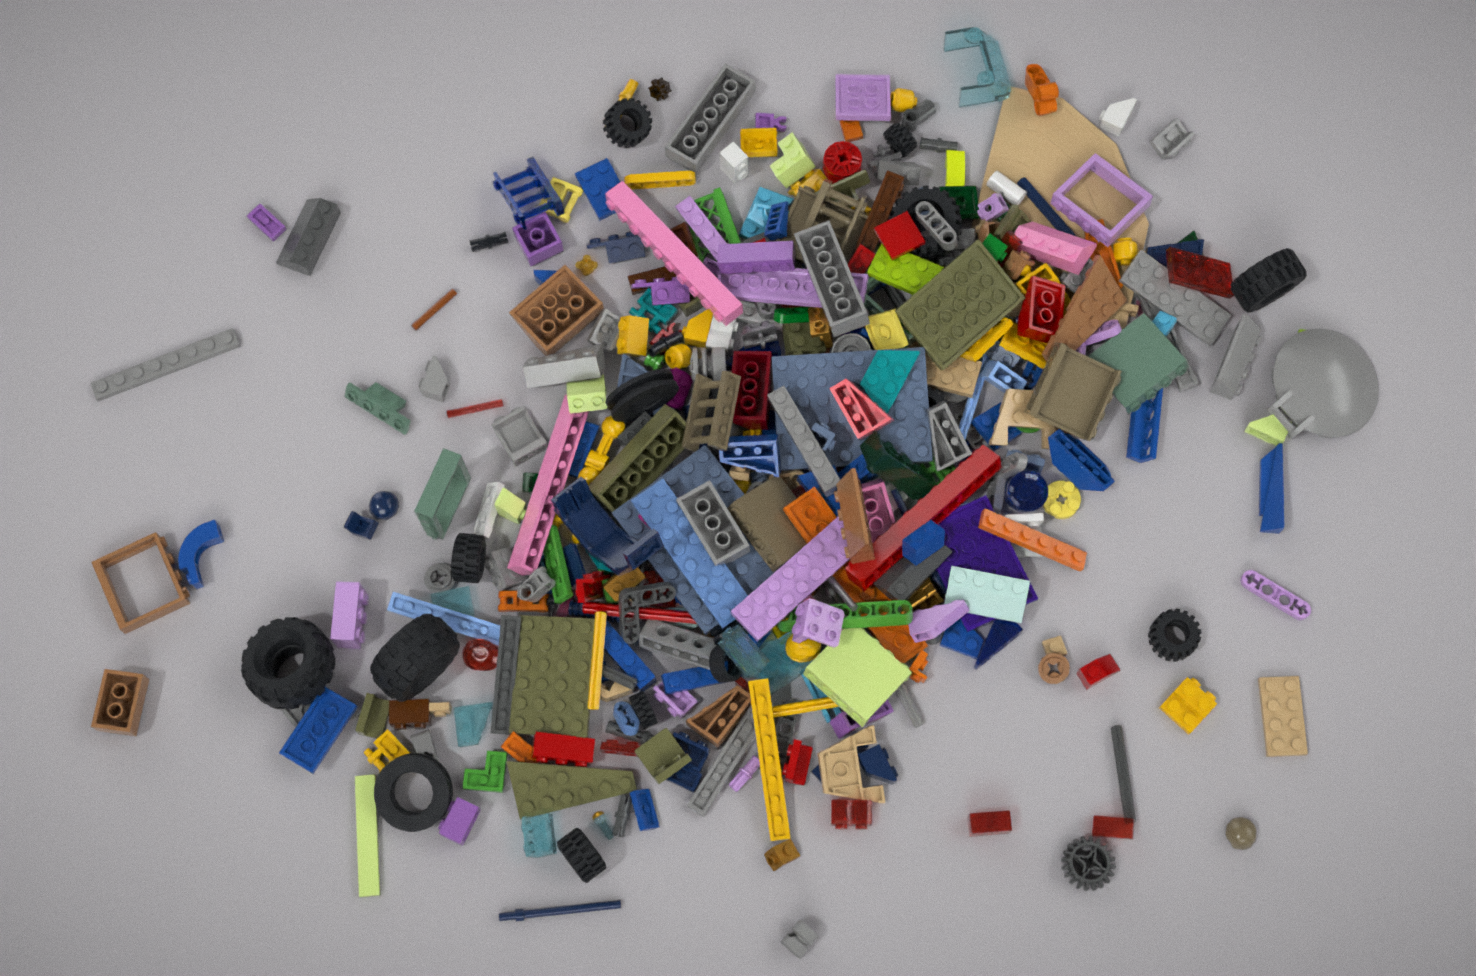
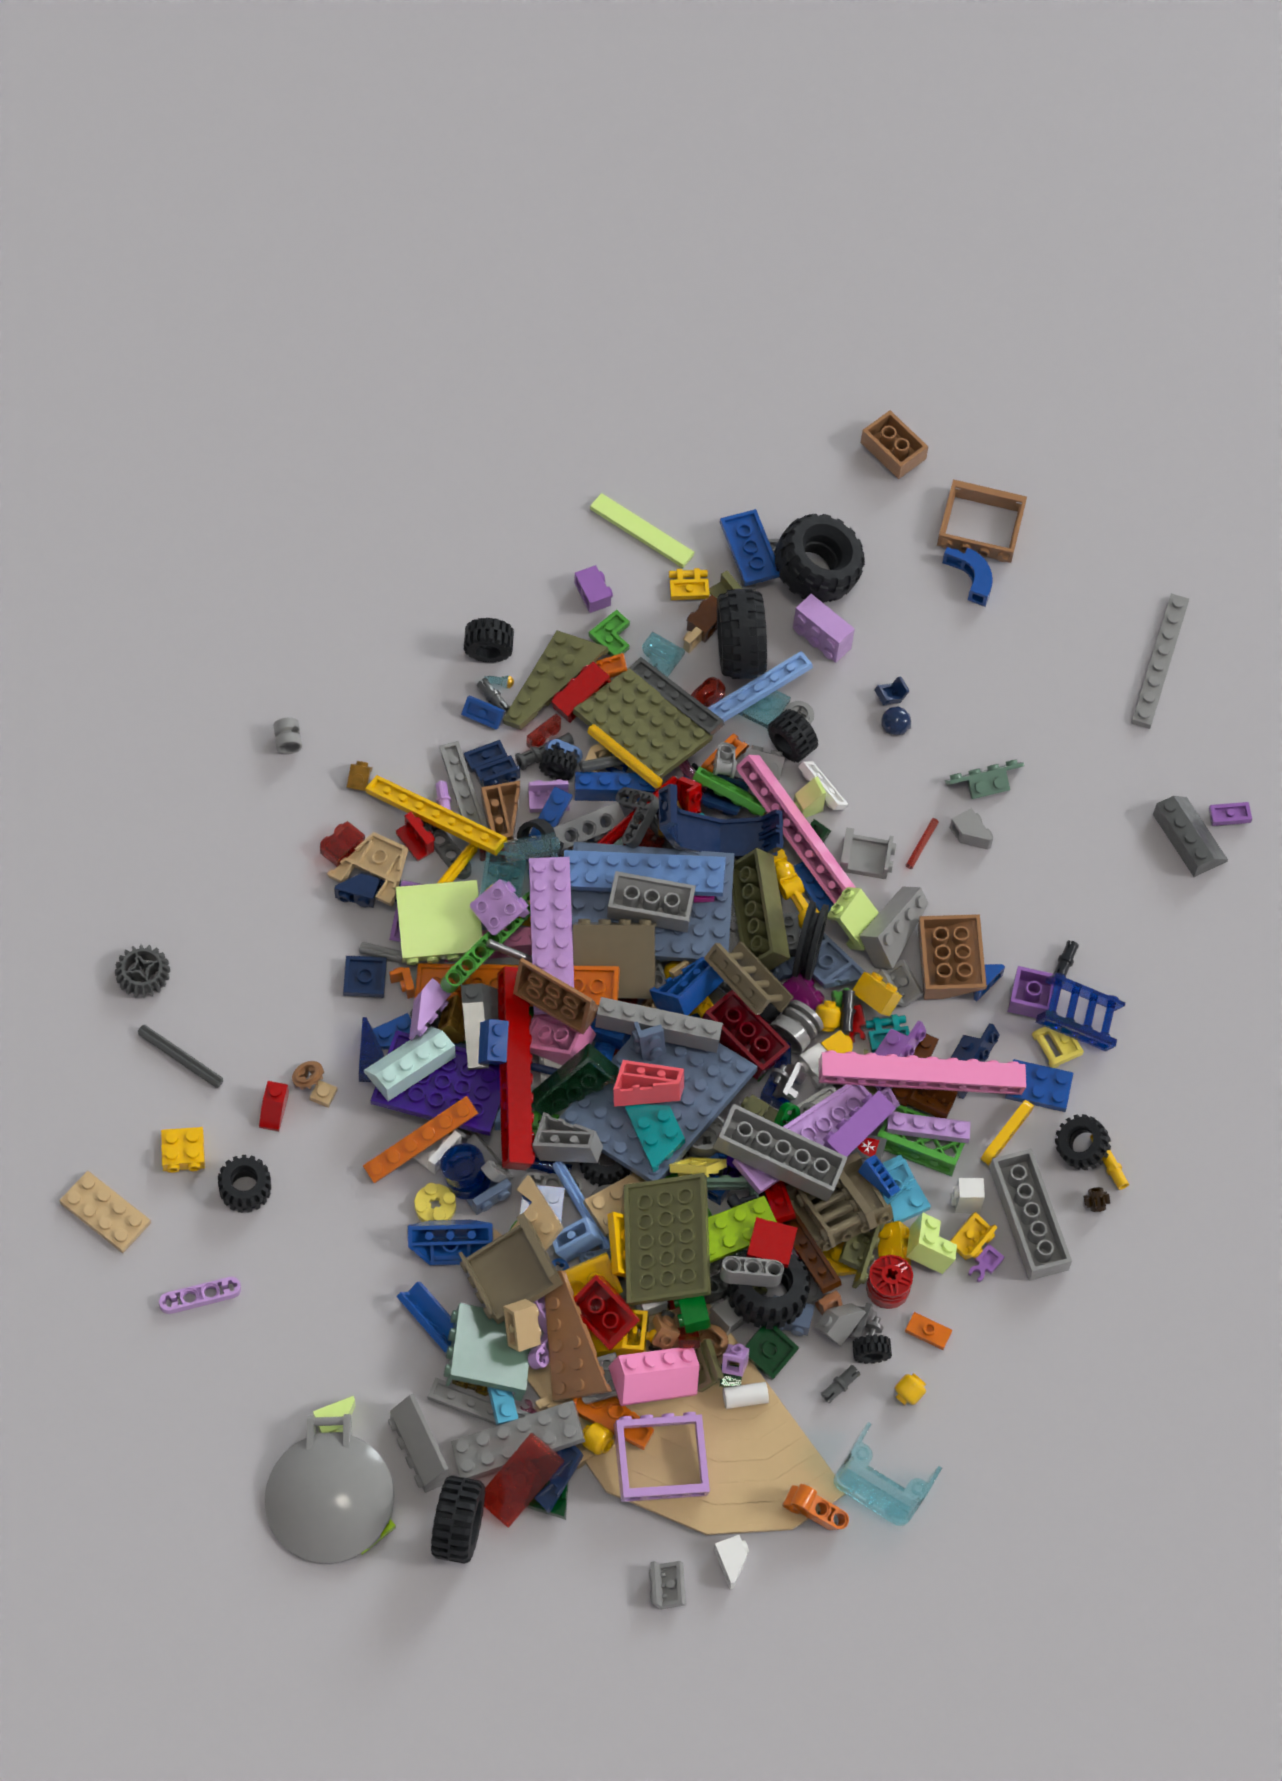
camera: 125 degrees right, 10 degrees down
(390, 808) = (643, 591): black tyre -> none
(424, 743) = (671, 609): light grey piece -> none
(434, 309) = (1039, 878): dark orange bar -> none
(442, 494) = (869, 775): sand green window -> none
(521, 914) = (486, 581): dark blue bar -> none
(539, 836) = (533, 630): clear light blue bracket -> none
(589, 269) = (977, 1022): clear yellow plate -> none
(662, 756) = (507, 747): olive bracket -> none
(862, 97) = (941, 1355): lavender plate -> none
(888, 285) = (734, 1201): none -> black hand
(918, 115) = (885, 1391): dark grey piece -> none
(940, 699) = (365, 976): none -> dark blue plate
(955, 168) = (805, 1376): neon yellow slope -> none
(989, 823) = (239, 928): clear red brick -> none
(1044, 207) = (709, 1414): dark blue axle -> none
(1107, 346) = (522, 1325): none -> tan brick
(1113, 827) = (149, 1011): clear red tile -> none
(1241, 833) = (53, 1099): dark tan hair -> none
(1272, 491) = (282, 1369): blue wedge -> none

